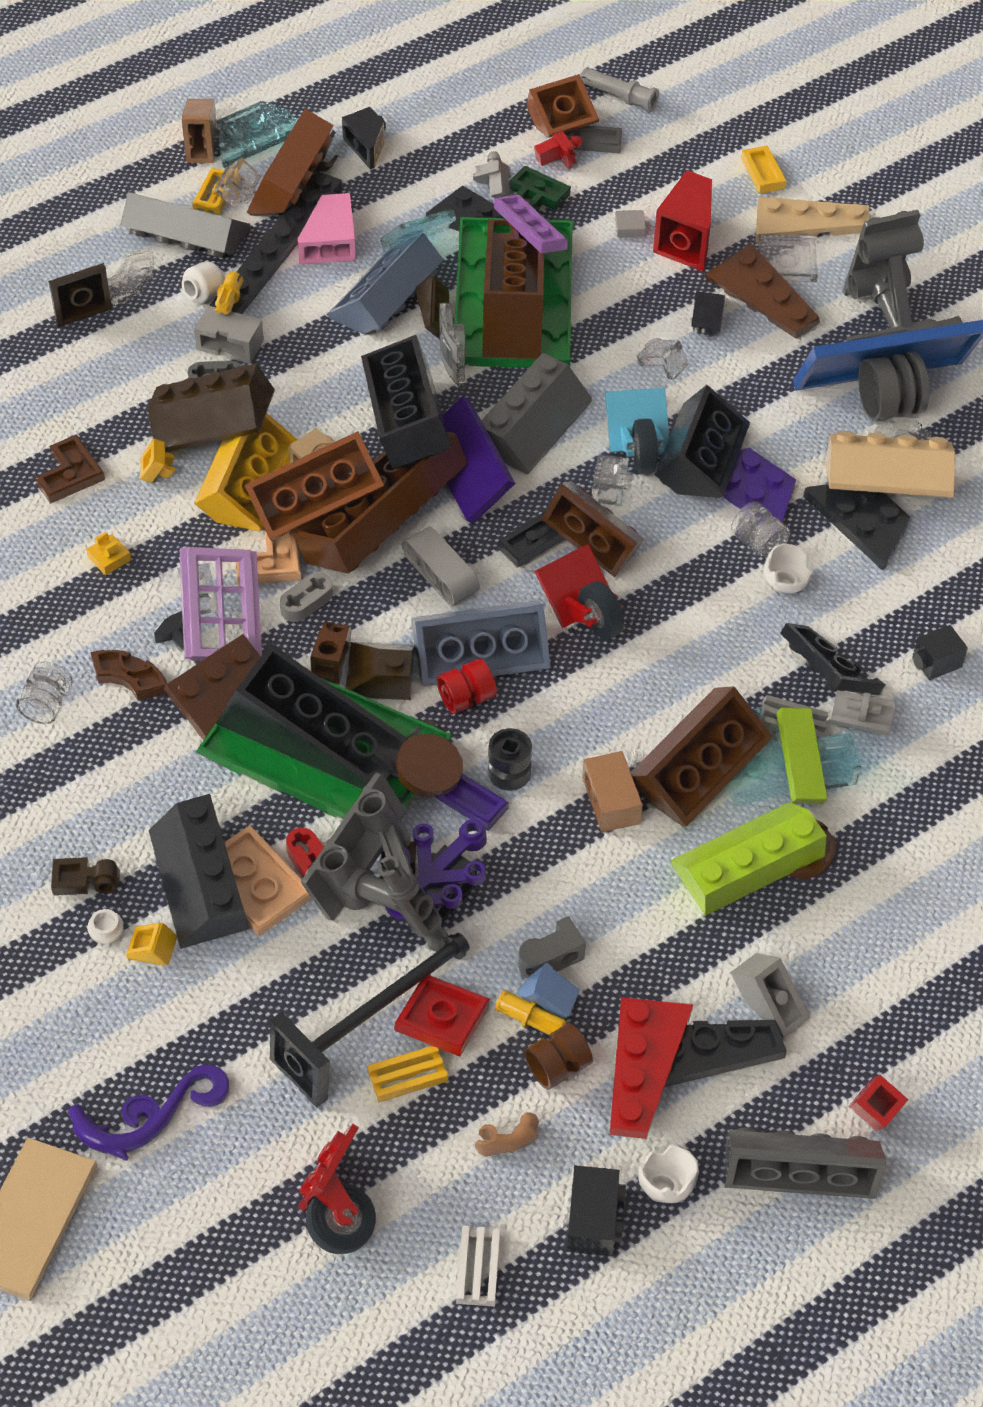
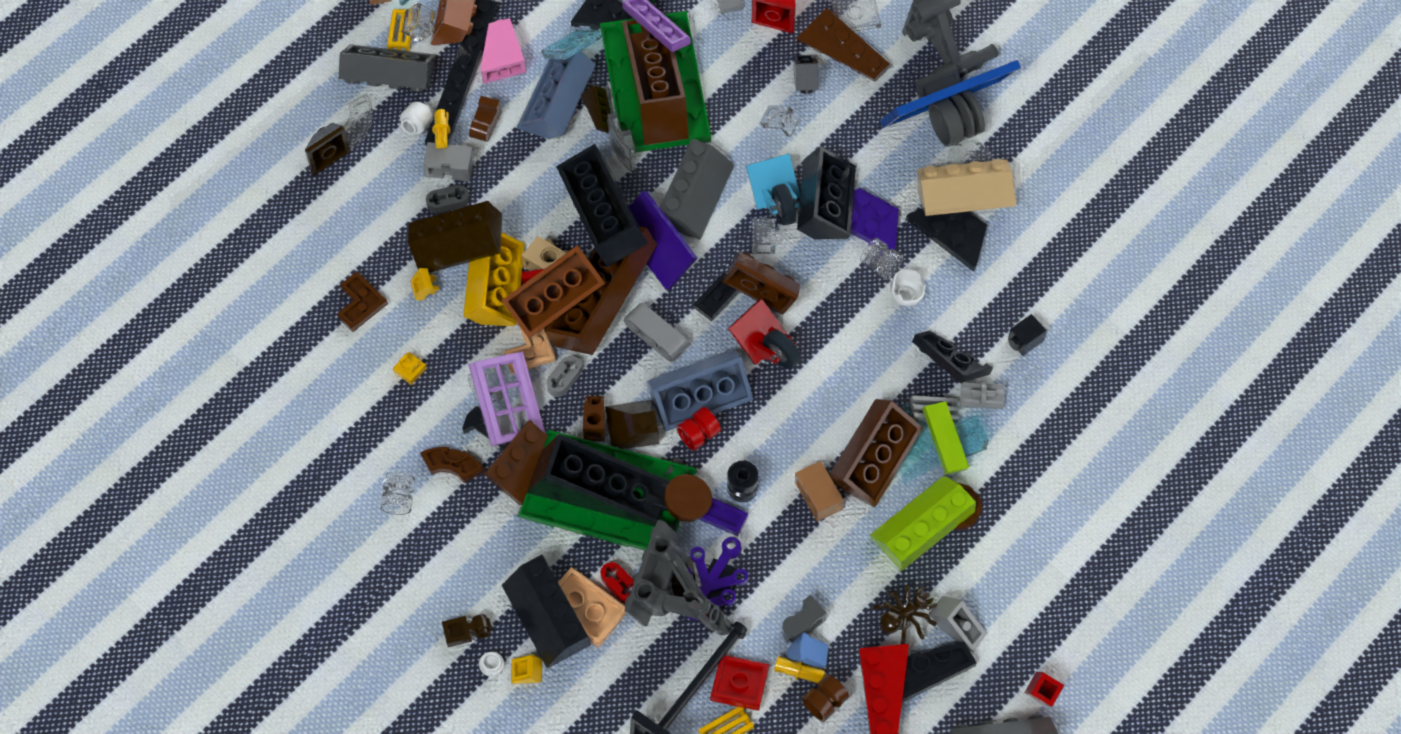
camera: 10 degrees left, 10 degrees up
(289, 296) = (485, 118): none -> reddish brown leg
(690, 969) = (901, 615): none -> dark brown animal

